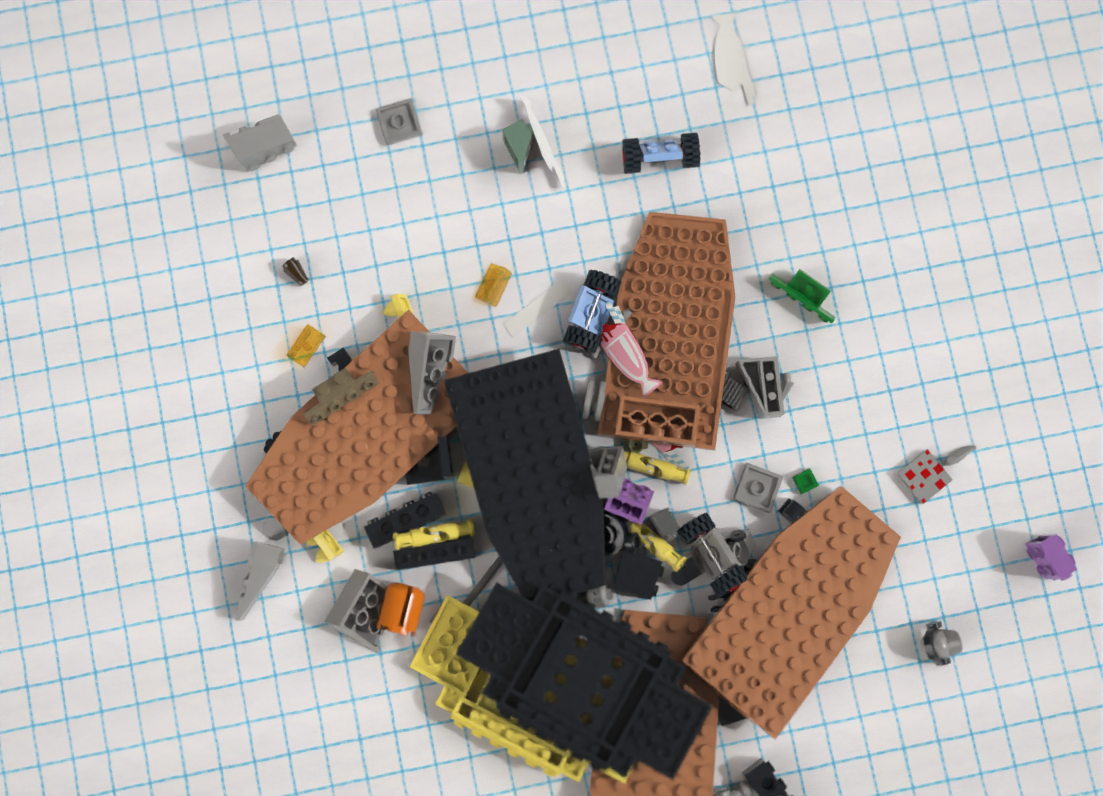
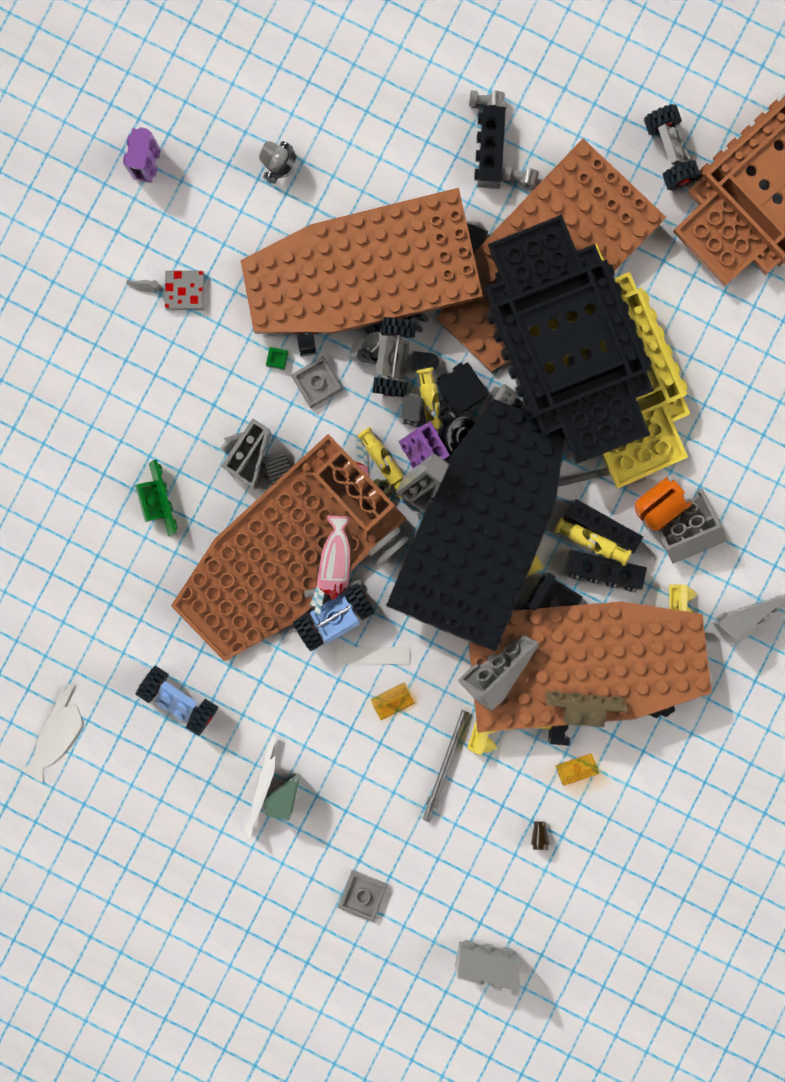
camera: 140 degrees left, 5 degrees up
(401, 233) = (432, 802): none -> flat silver bar

